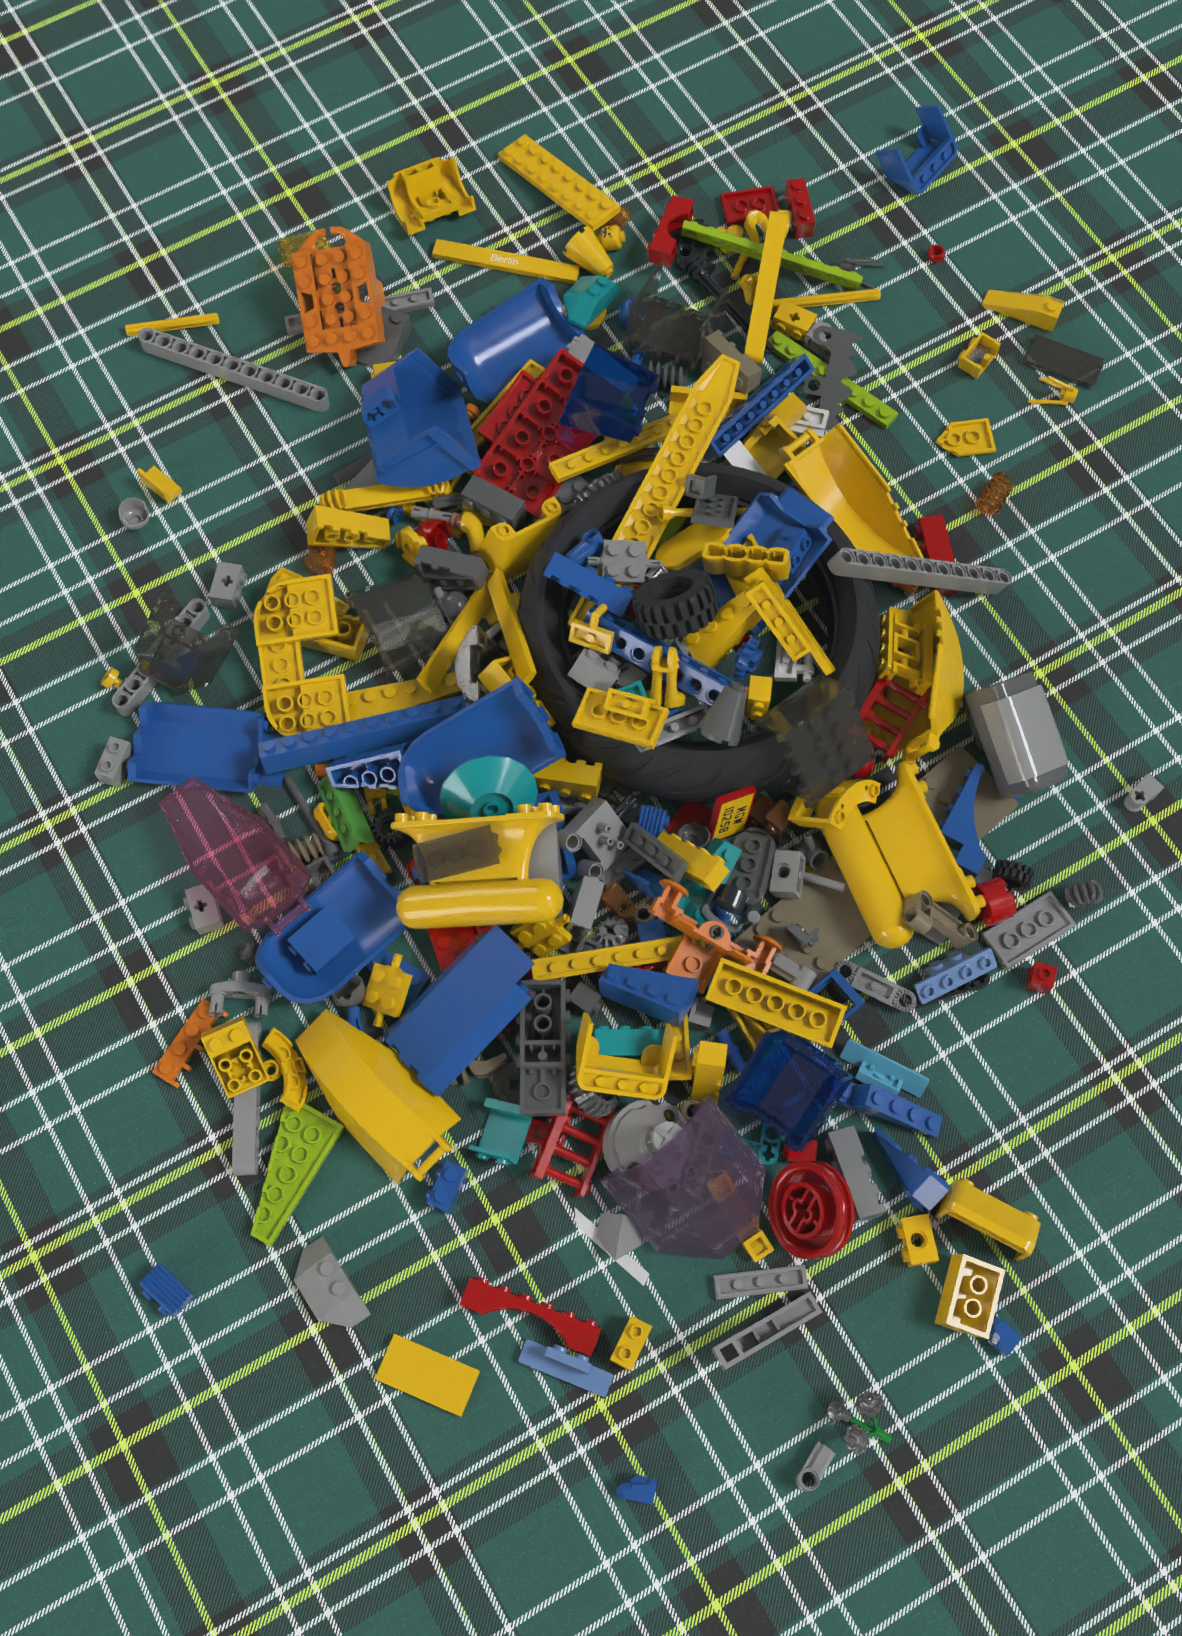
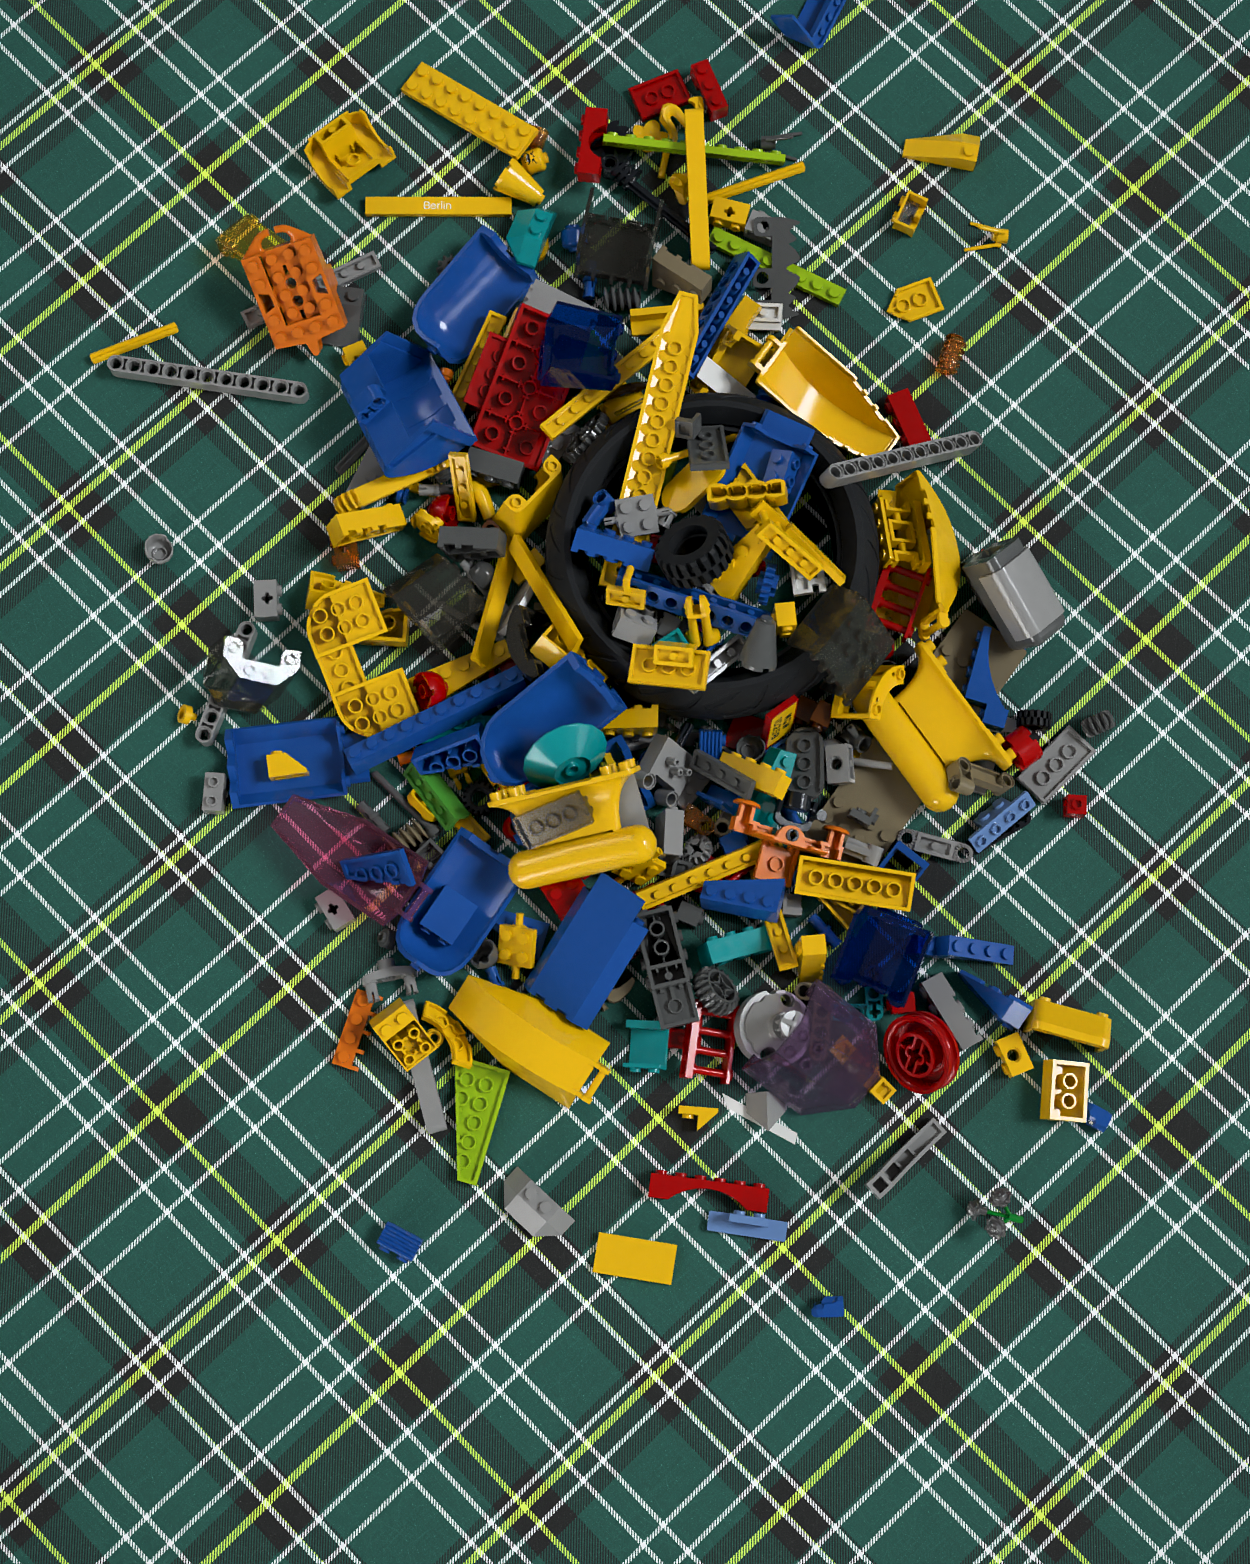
camera: 15 degrees left, 10 degrees up
(160, 484) = (172, 512): yellow panel -> none
(193, 750) = (283, 766): none -> yellow slope
(261, 871) = (380, 867): none -> blue wing
(368, 701) = (430, 689): none -> red cylinder
(447, 1187) = (612, 1102): blue brick -> none
(456, 512) = (462, 486): none -> yellow tile
(502, 1080) = (635, 1004): clear smoke plate -> none
(547, 1225) = (703, 1114): none -> yellow slope
(620, 1075) = (740, 976): yellow windscreen -> none
(631, 1343) = (796, 1194): yellow brick -> none
(760, 1282) = (890, 1119): light grey tile -> none
(815, 1465) = (966, 1254): light grey piece -> none
(883, 1071) = (955, 919): medium azure bracket -> none
(936, 253) = (848, 107): red plate -> none
(1062, 361) = (989, 201): clear smoke brick -> none
(1144, 791) = (1134, 615): light grey piece -> none

